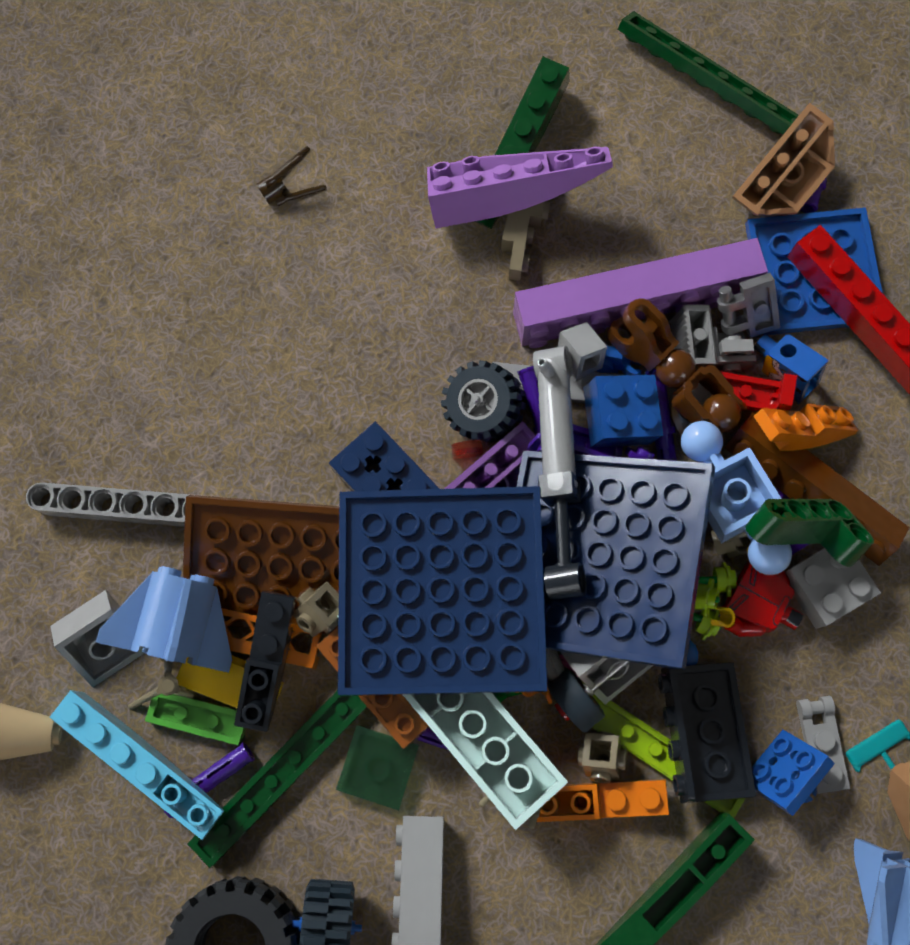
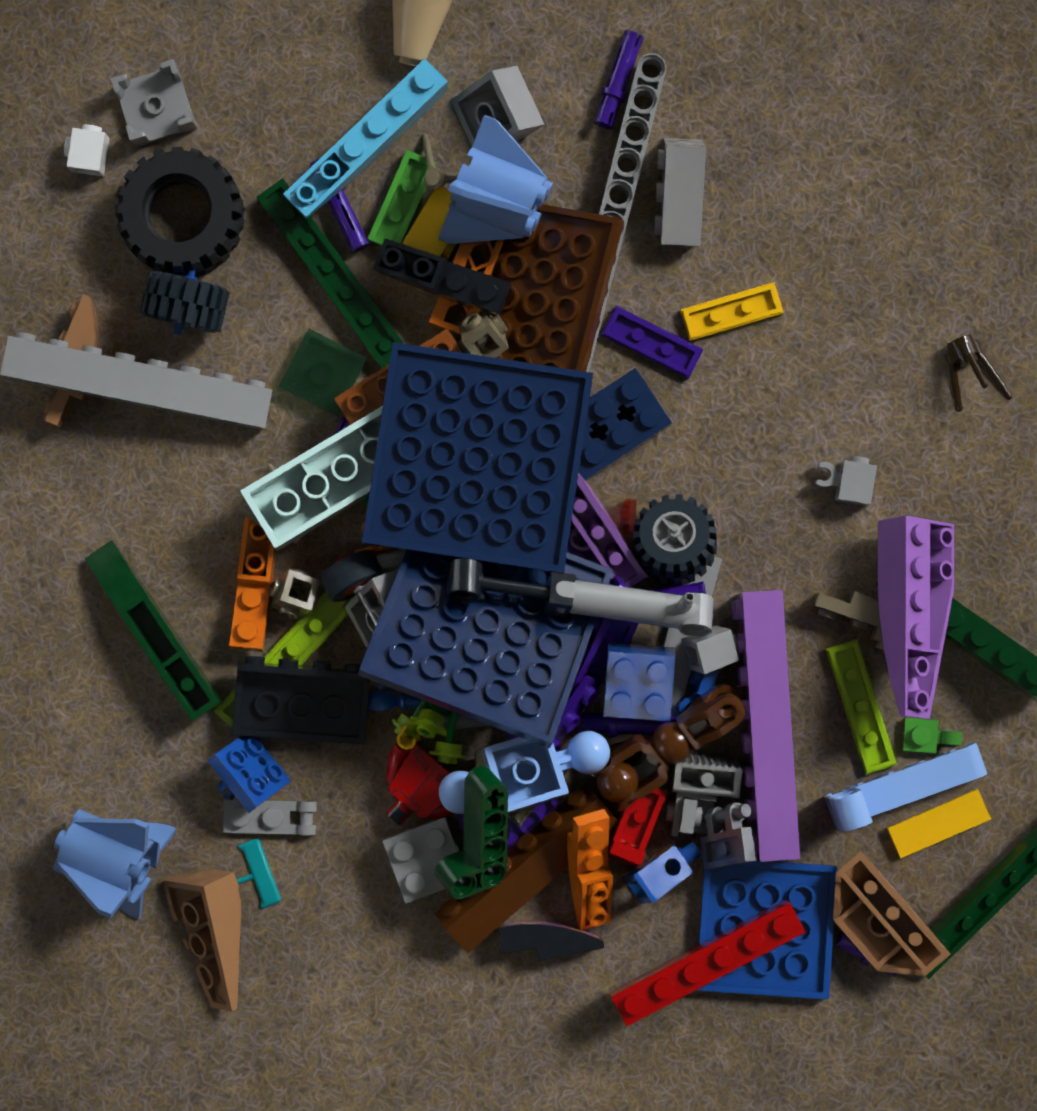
camera: 90 degrees right, 10 degrees up
(68, 530) = (615, 88): none -> dark purple pin
(156, 450) = (680, 191): none -> light grey wedge
(264, 391) = (731, 311): none -> yellow tile
(302, 457) = (652, 342): none -> dark purple tile
(402, 260) = (853, 482): none -> light grey brick
(601, 225) = (860, 706): none -> lime tile
(620, 174) = (923, 736): none -> bright green plate
(689, 146) = (938, 823): none -> yellow tile
(689, 207) = (859, 802): none -> light blue beam
(875, 456) = (549, 938): none -> black slope

